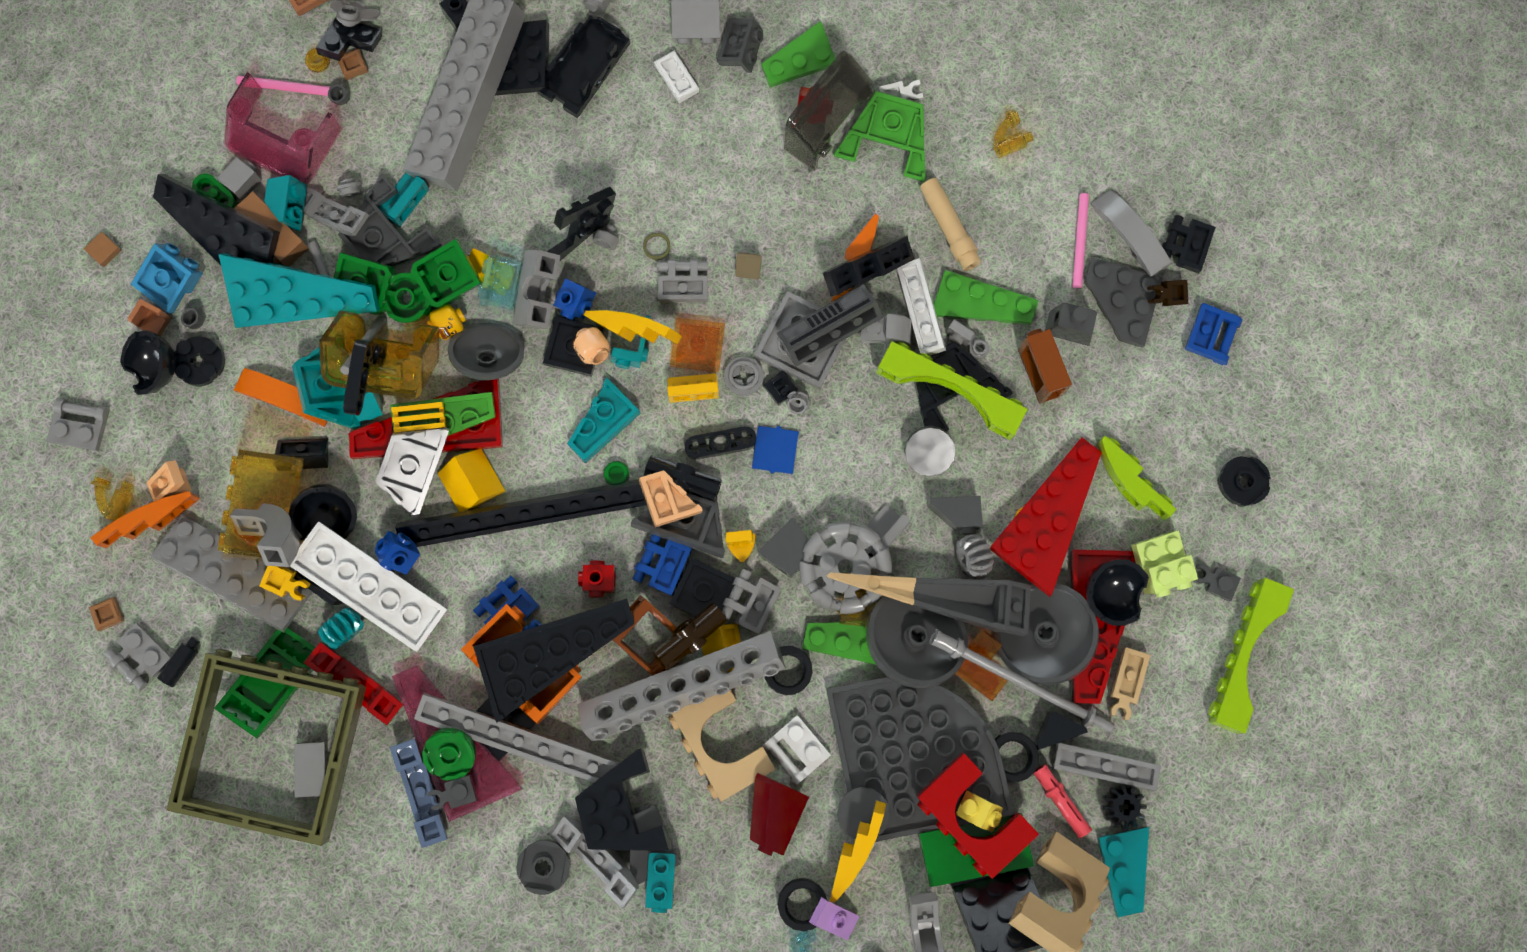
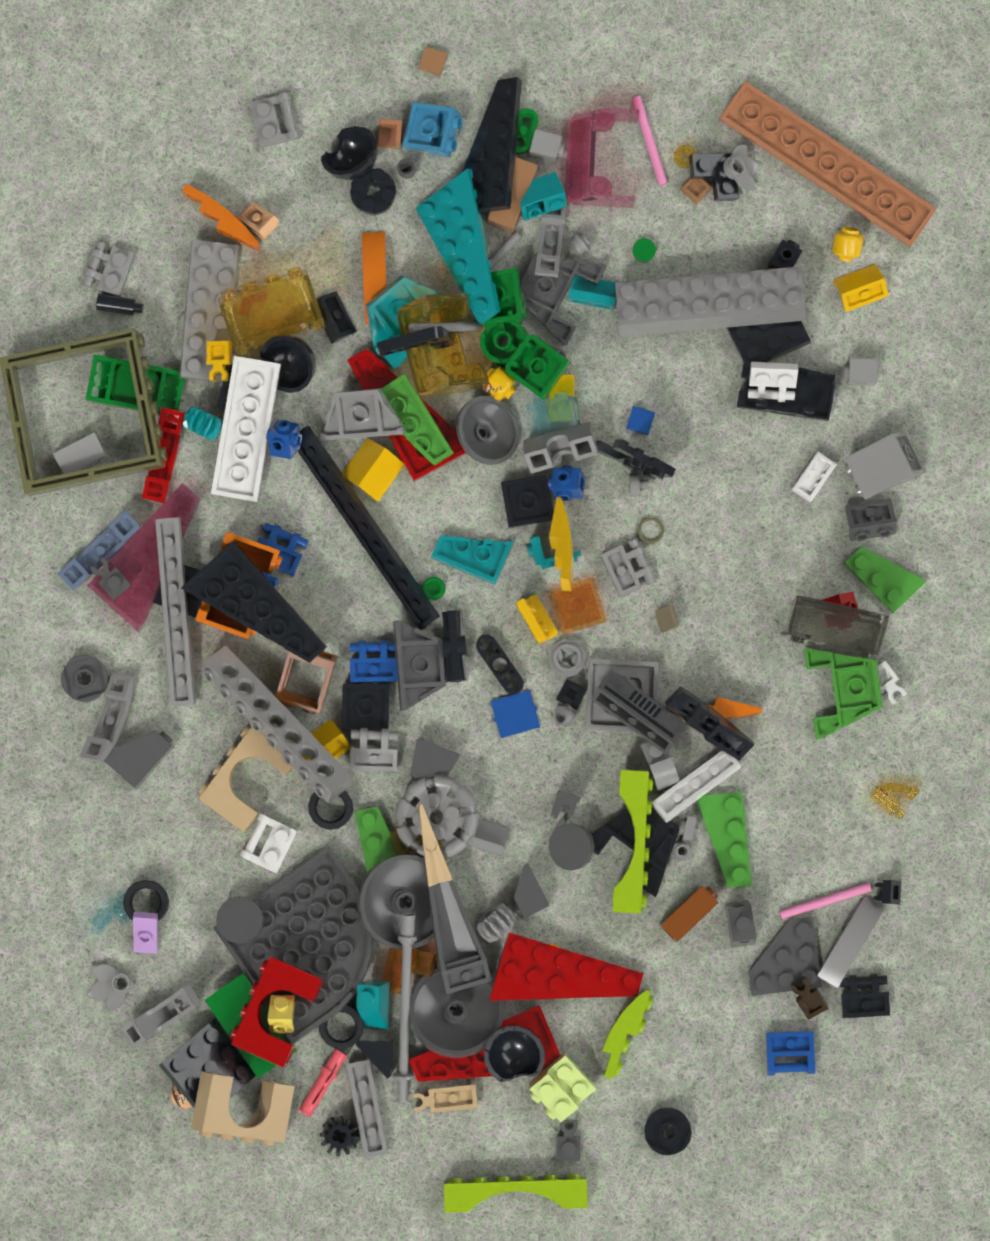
camera: 70 degrees right, 5 degrees up
(106, 614) = (131, 225): medium nougat tile -> none
(119, 501) = (223, 189): clear yellow plant -> none
(279, 538) = (248, 345): light grey arch -> none
(334, 94) = (659, 188): dark grey hinge -> none
(386, 135) = (644, 250): none -> green tile
(396, 419) = (400, 381): yellow tile -> none
(449, 754) = (140, 560): green tile -> none
(546, 209) = (640, 420): none -> blue tile
(562, 65) = (772, 375): none -> white plate
(591, 345) = (531, 517): light nougat head -> none
(607, 580) = (340, 622): red brick -> none
(608, 813) = (151, 710): black wing -> none
(660, 882) = (113, 778): teal bracket -> none
(666, 499) = (427, 641): light nougat wing -> none
(689, 636) = (320, 712): dark brown piece -> none
(741, 543) = (419, 721): yellow tile -> none
(774, 814) = (207, 847): dark red slope -> none
(855, 856) = (203, 926): yellow slope -> none
(885, 440) = (566, 801): none -> dark grey hinge
(960, 243) = (770, 796): tan piece -> none
(1004, 712) = (374, 1003): none -> teal slope
(1099, 177) = (890, 892): none -> black tile
(1127, 860) = (289, 1159): teal wing -> none

